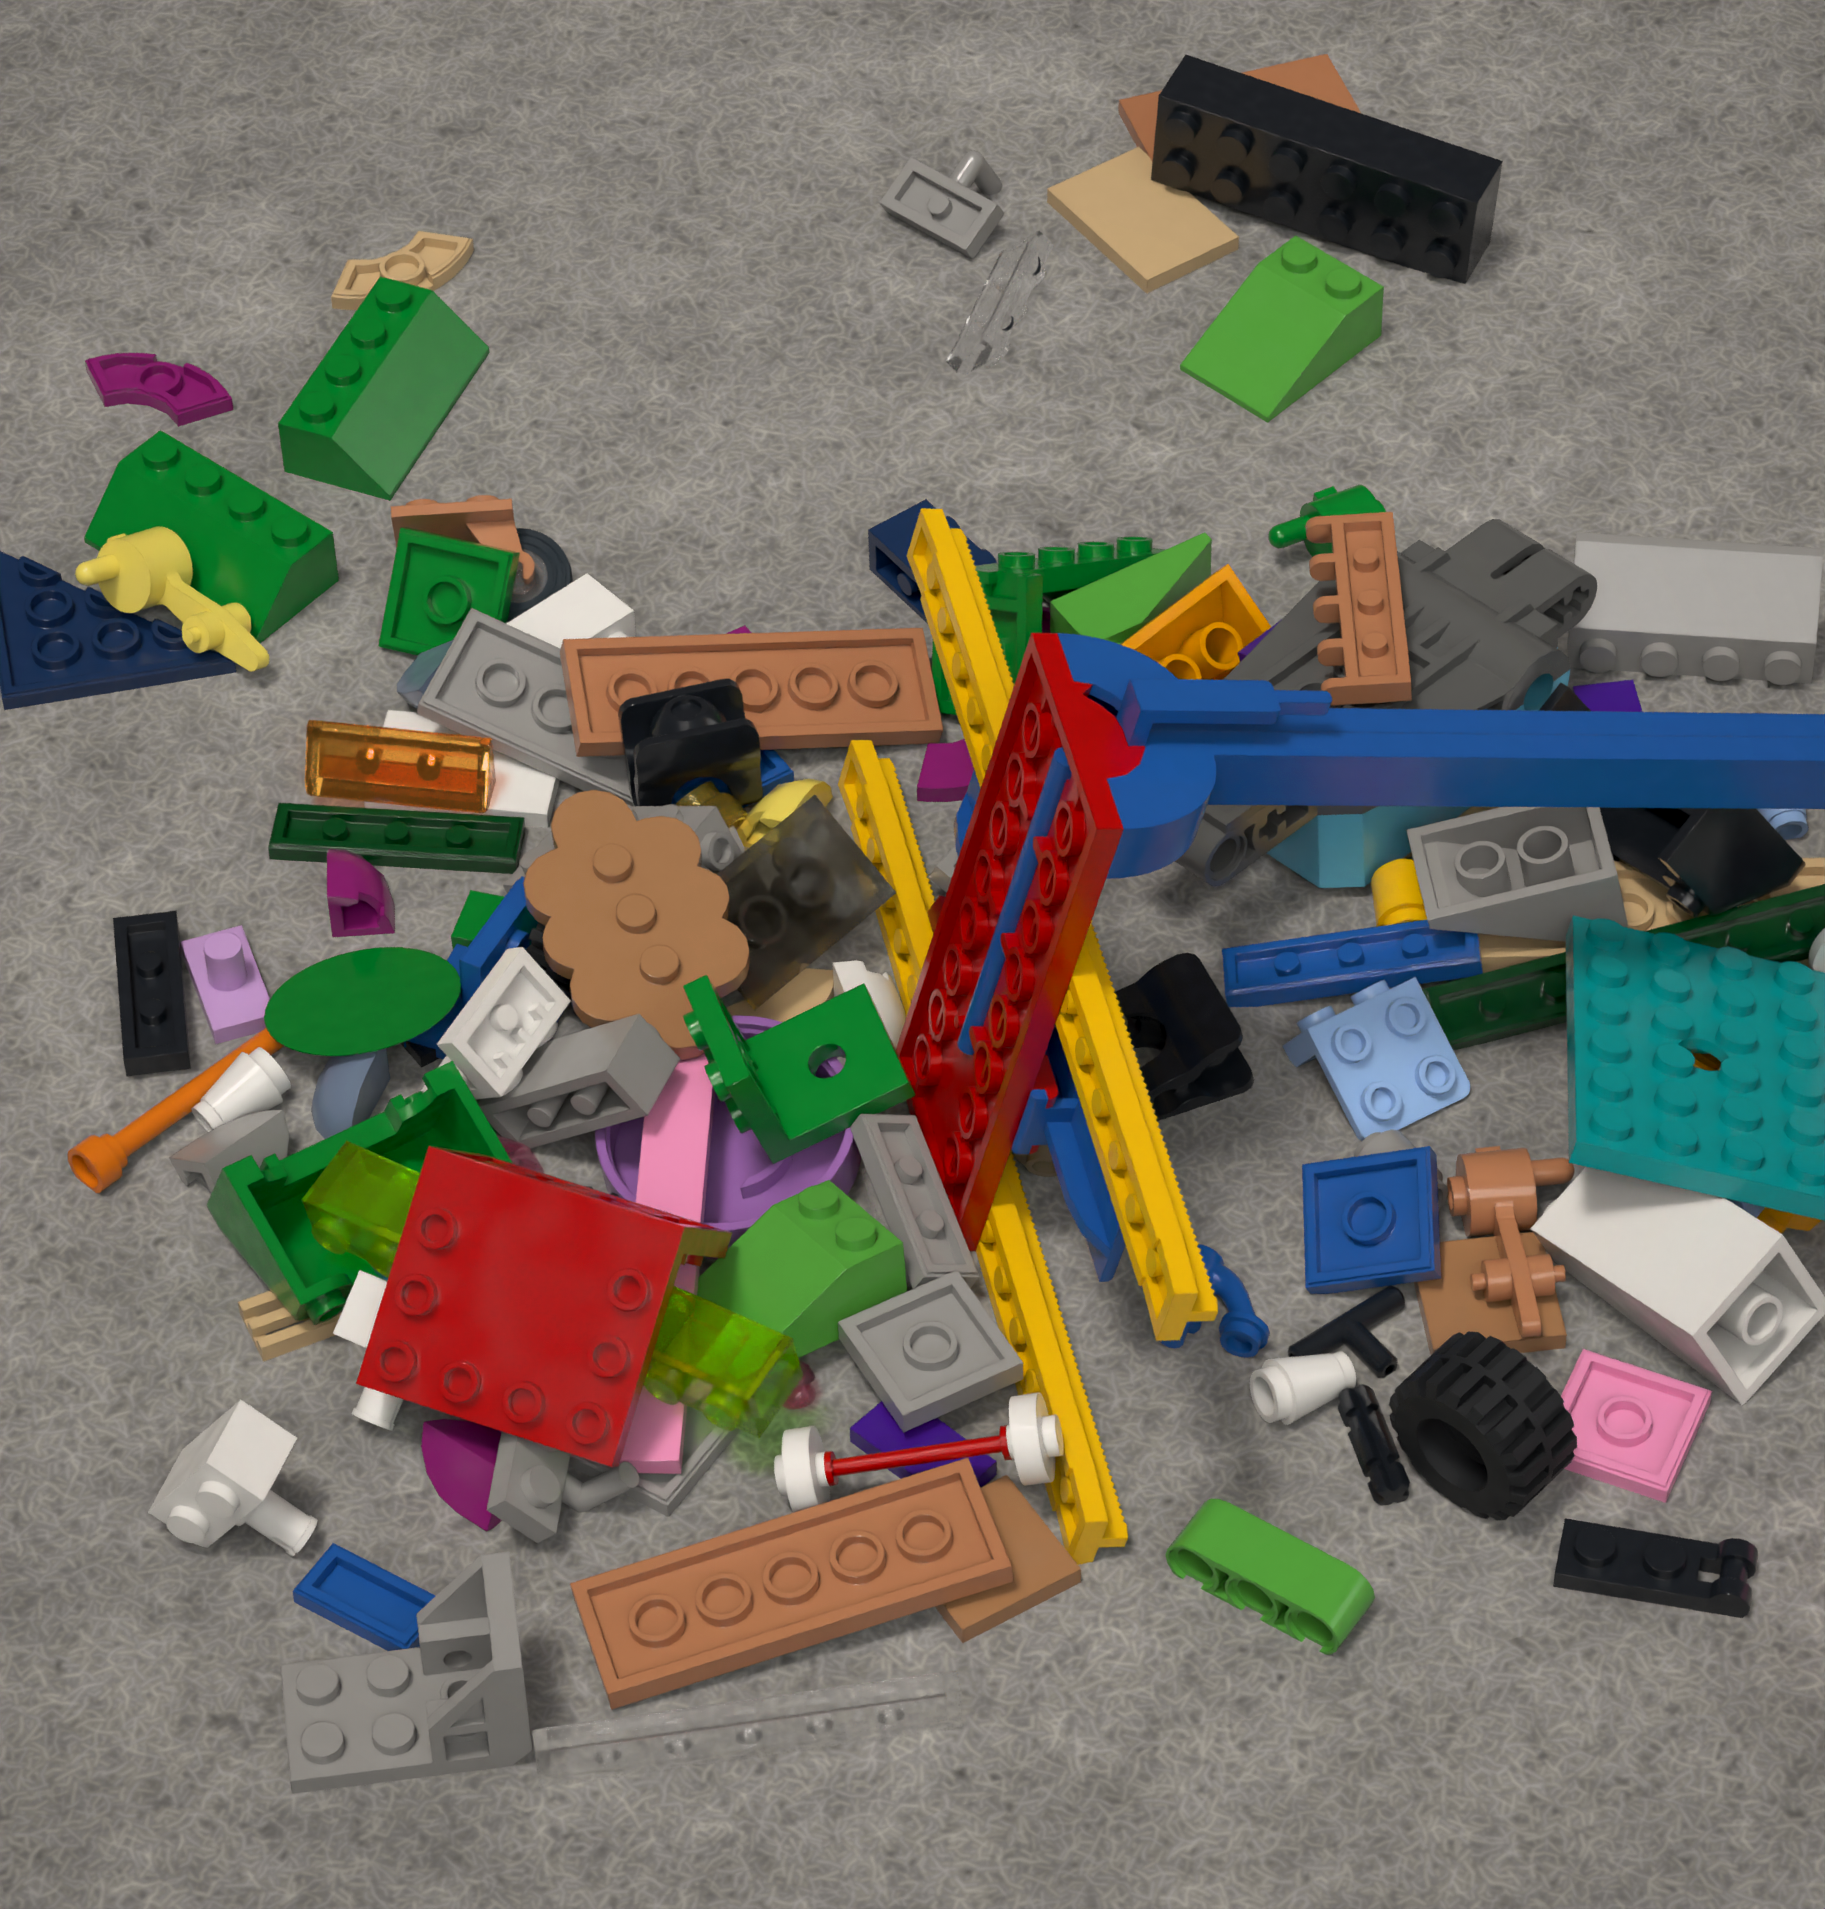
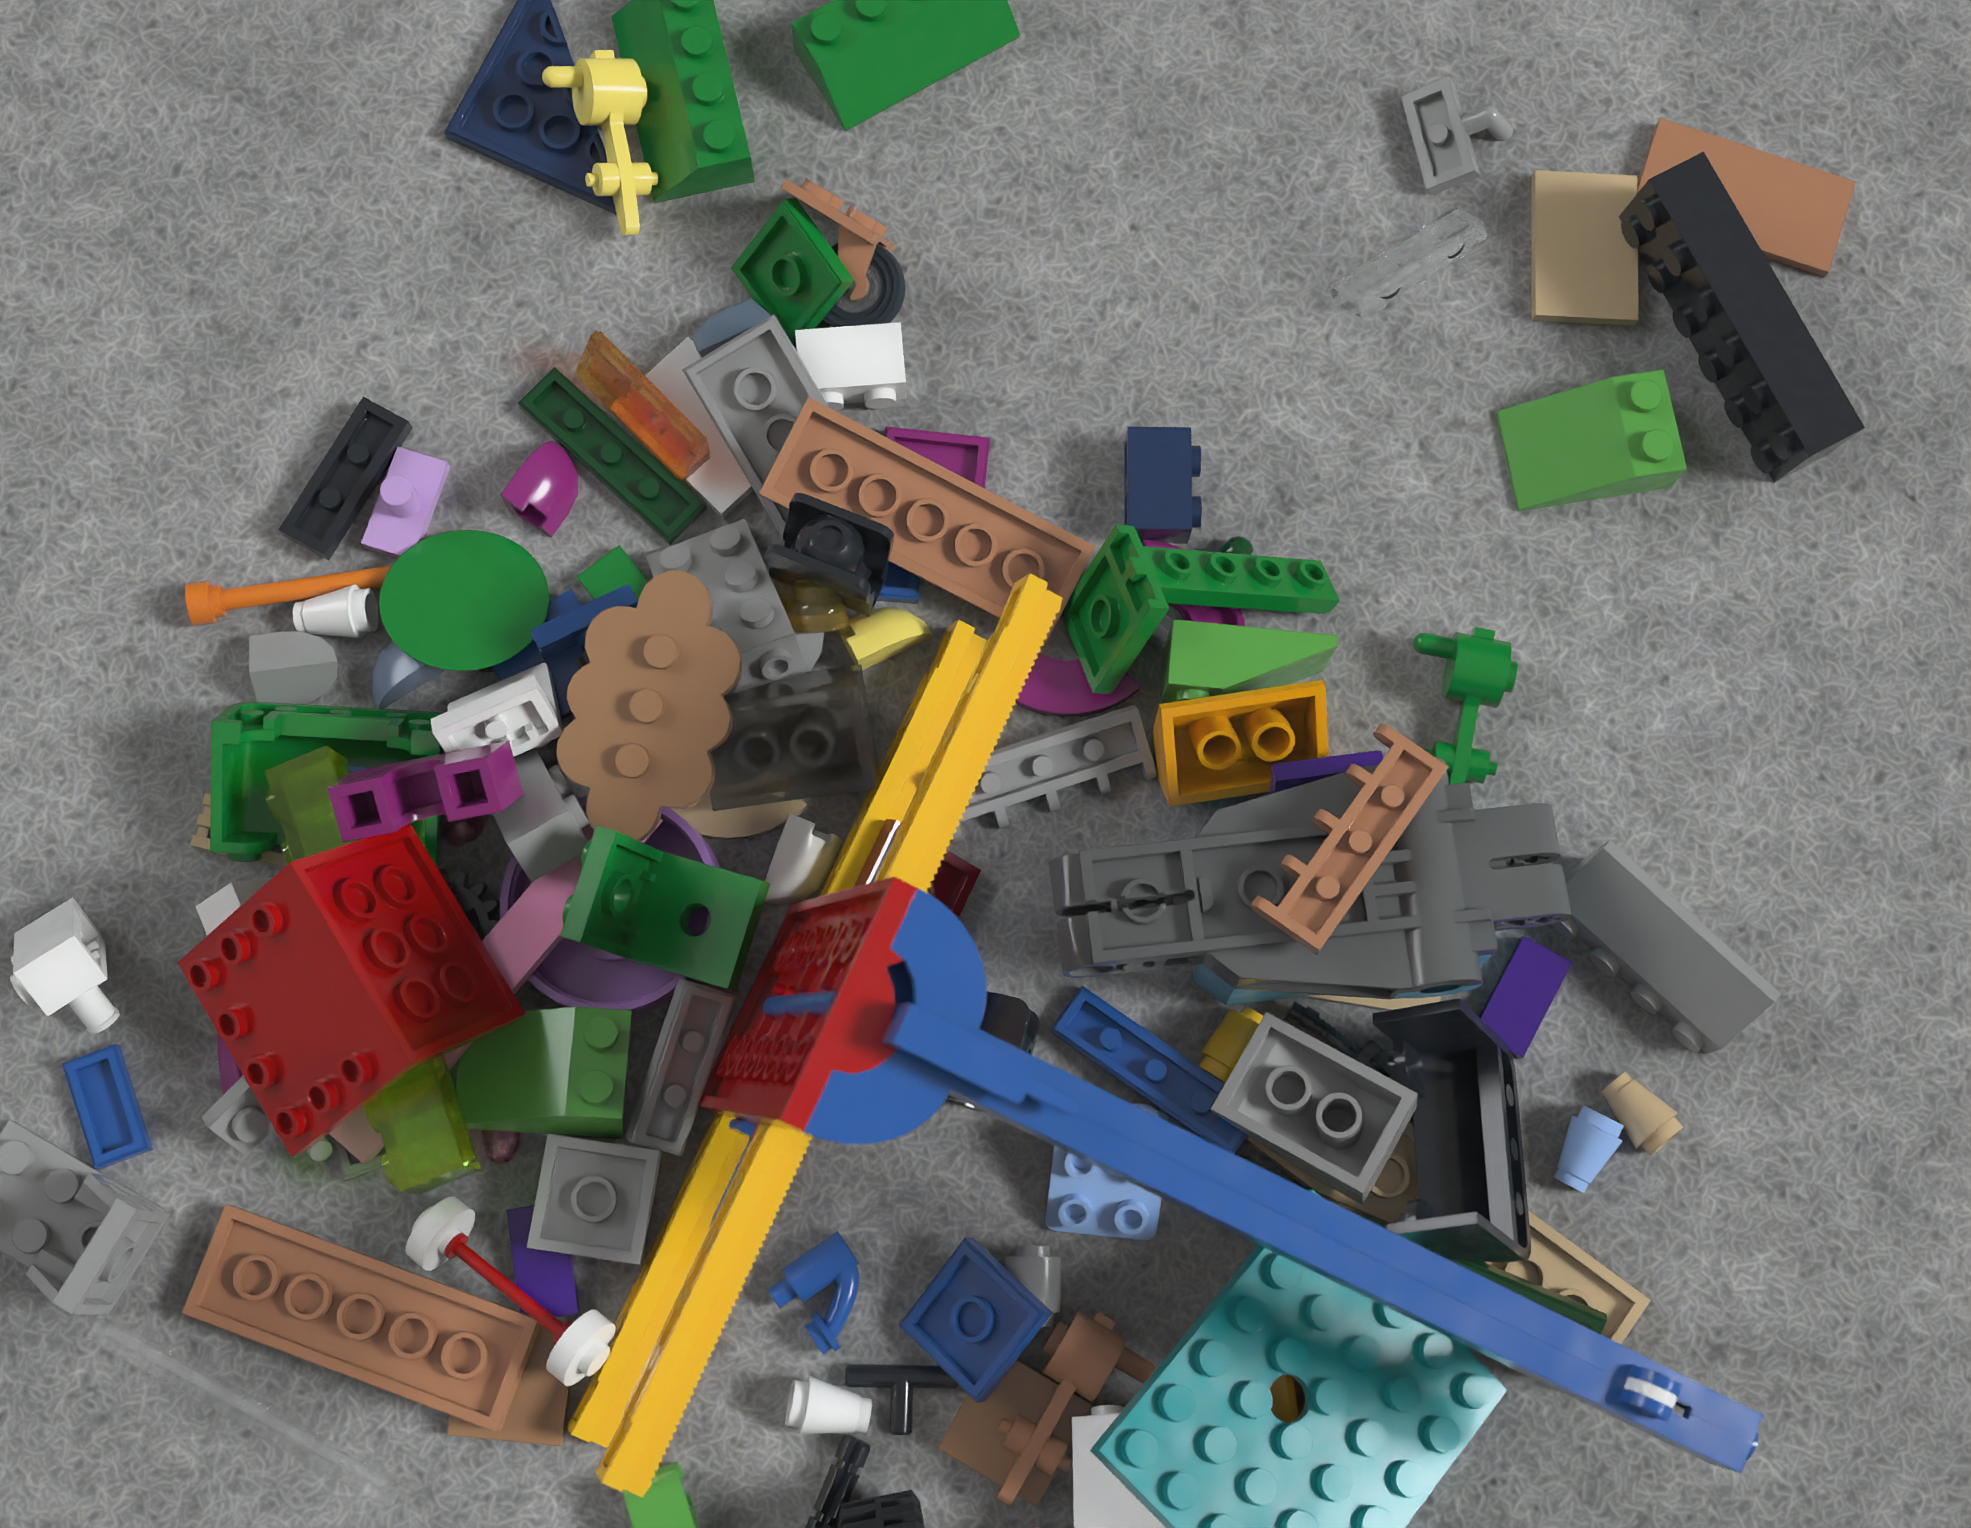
camera: 30 degrees right, 30 degrees up
(494, 1086) = (400, 793): none -> magenta arch

